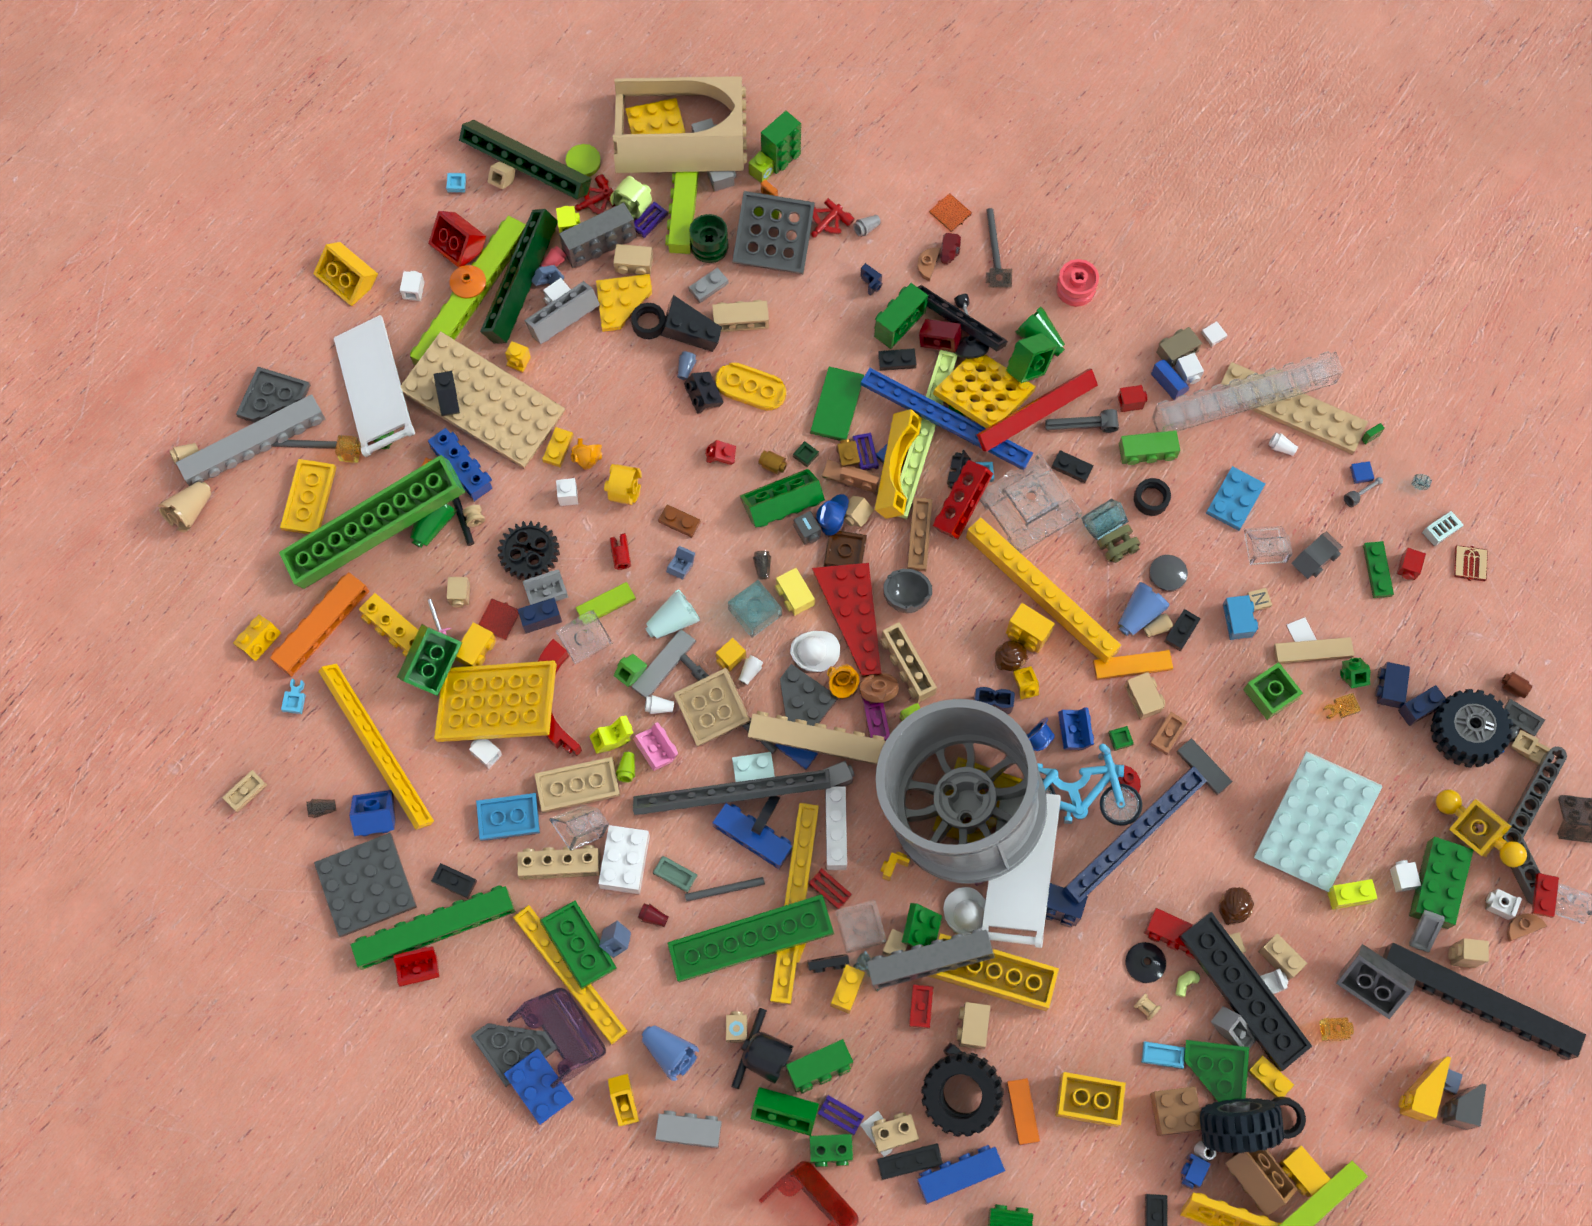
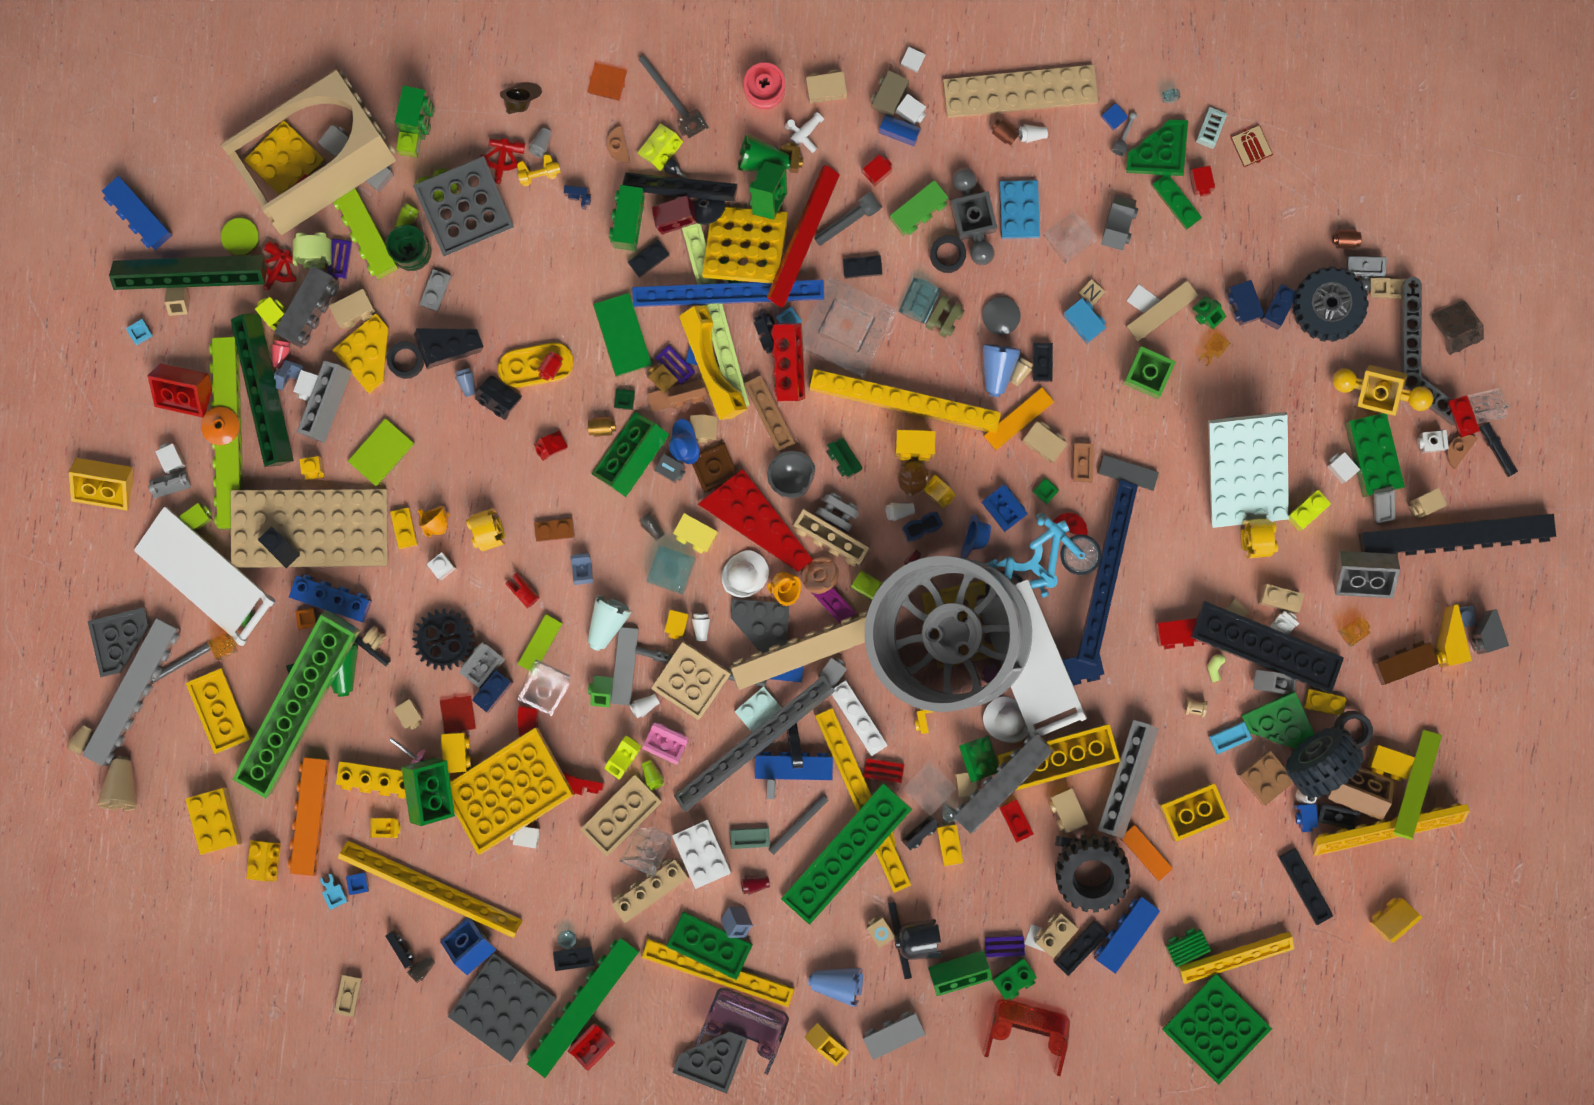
camera: 30 degrees left, 15 degrees up
(240, 579) = (213, 821): none -> yellow brick
(315, 787) = (396, 942): none -> black plate
(319, 703) = (357, 883): none -> blue plate
(373, 671) = (384, 828): none -> yellow bracket
(397, 305) = (169, 484): none -> light grey hinge
(400, 340) = (197, 516): none -> lime brick
(460, 861) = (567, 939): none -> clear light blue tile
(508, 817) = (581, 878): dark azure plate -> none
(516, 98) = (136, 212): none -> blue brick
(532, 1082) = (746, 1076): blue plate -> none
(580, 379) = (381, 452): none -> lime tile
(720, 839) = (771, 789): none -> light grey tile
(727, 215) = (407, 215): none -> lime cone
(741, 315) = (484, 304): tan brick -> none
(761, 390) = (550, 366): none -> red brick
(767, 188) = (430, 164): orange tile -> none
(819, 1066) = (966, 922): green brick -> none
(861, 248) = (550, 170): none -> yellow piece
(871, 183) = (519, 96): none -> dark brown piece
(929, 636) = (848, 509): none -> light grey brick
(950, 247) = (630, 120): dark red rock -> none
(961, 605) = (844, 457): none -> dark green bracket
(962, 281) = (660, 147): none -> neon yellow bracket
(981, 677) = (899, 510): none -> white cone
(1046, 1031) = (1128, 779): none -> light grey brick
(1069, 351) = (797, 160): none -> pearl gold bracket
(1085, 337) = (801, 134): none -> white piece
(1128, 312) = (826, 86): none -> tan brick
(1138, 969) = (1164, 667): black dish -> none
(1193, 478) = (979, 204): none -> dark grey brick
(1224, 1189) = (1338, 816): none -> black brick
(1236, 905) = (1220, 577): reddish brown hair -> none
(1248, 393) = (980, 106): clear brick -> none
(1259, 430) = (1005, 131): none -> copper brick
(1292, 890) = (1259, 538): none -> yellow brick
(1368, 1087) = (1405, 662): none -> reddish brown brick
(1372, 433) = (1104, 74): green tile -> none
(1388, 521) = (1161, 151): none -> green plate
(1561, 946) = (1498, 449): none -> black pin

